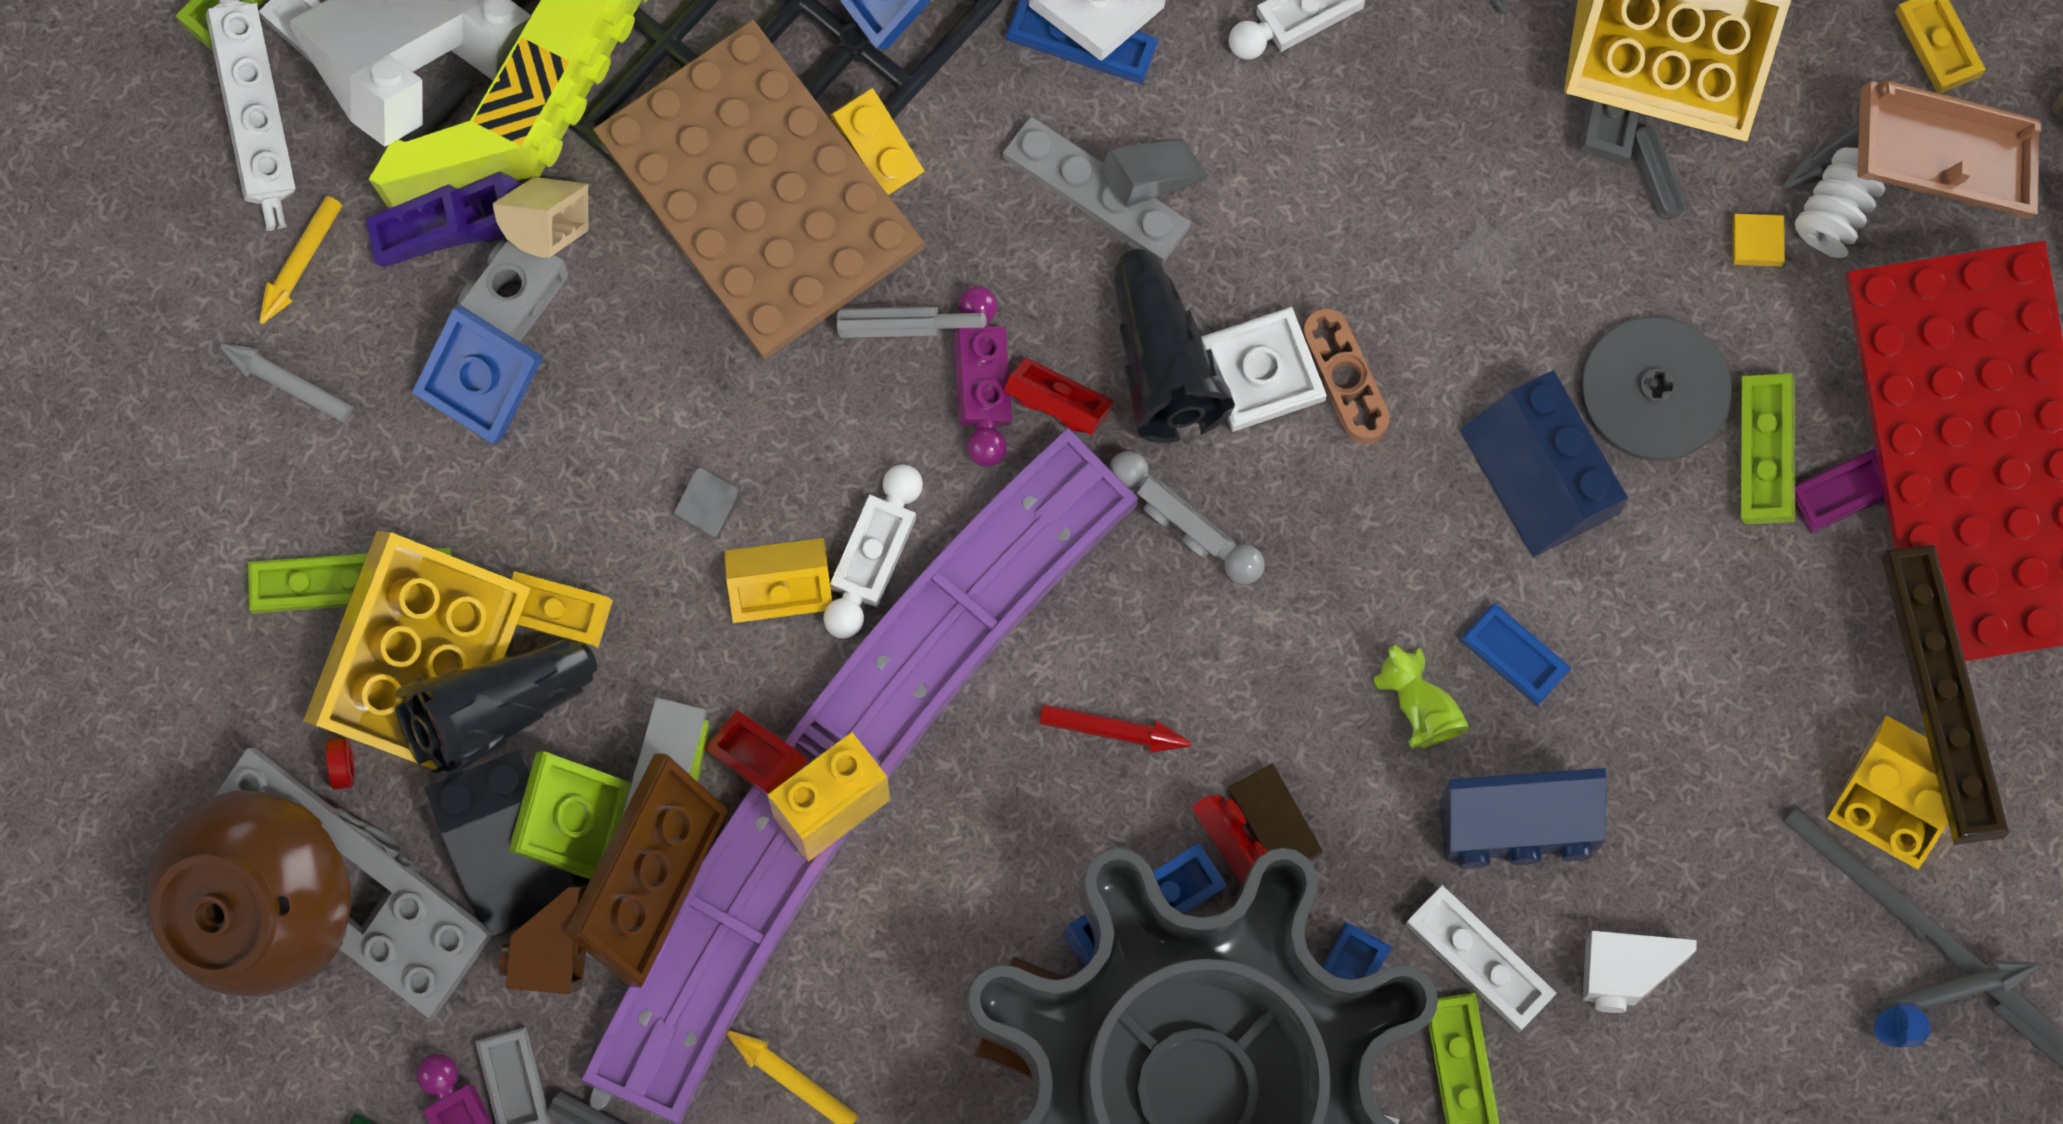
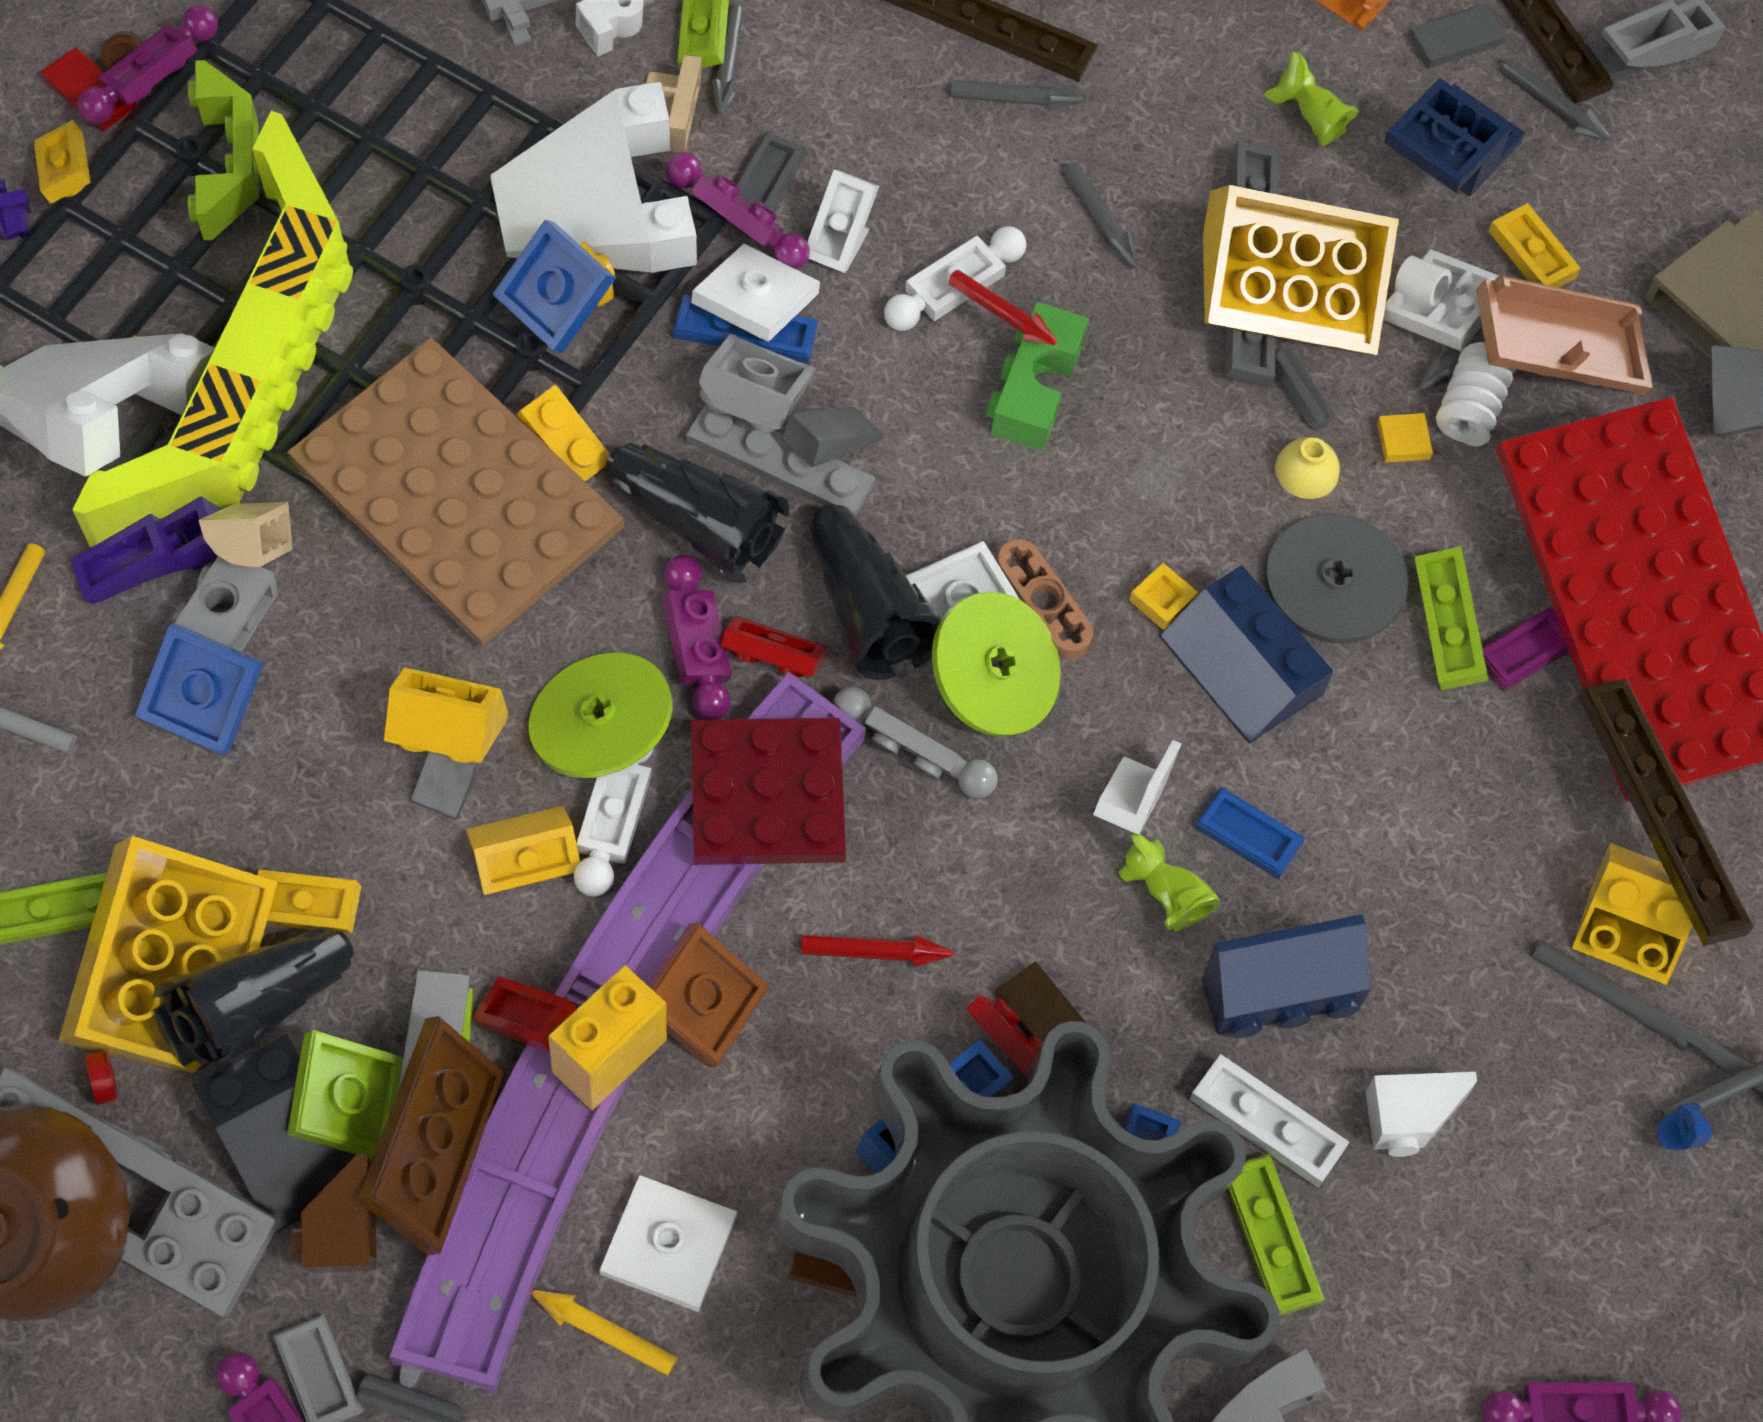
camera: 15 degrees left, 10 degrees down
(713, 437) = (444, 715): none -> yellow slope
(866, 1001) = (668, 1243): none -> white plate
(902, 322) = (612, 594): light grey axle -> none
(904, 461) = (635, 709): none -> lime piece
(934, 757) = (706, 994): none -> dark orange tile
(1013, 243) = (709, 510): none -> black cone
(1027, 554) = (767, 791): none -> dark red plate
(1079, 106) = (753, 383): none -> light grey slope
(1274, 481) = (983, 695): none -> lime piece
(1377, 78) = (1033, 327): none -> red piece
(1396, 92) = (1025, 407): none -> bright green arch
(1401, 599) = (1135, 791): none -> white panel
(1470, 388) = (1163, 596): none -> yellow plate
(1648, 262) = (1307, 468): none -> light yellow brick
(1821, 87) = (1437, 298): none -> white plate

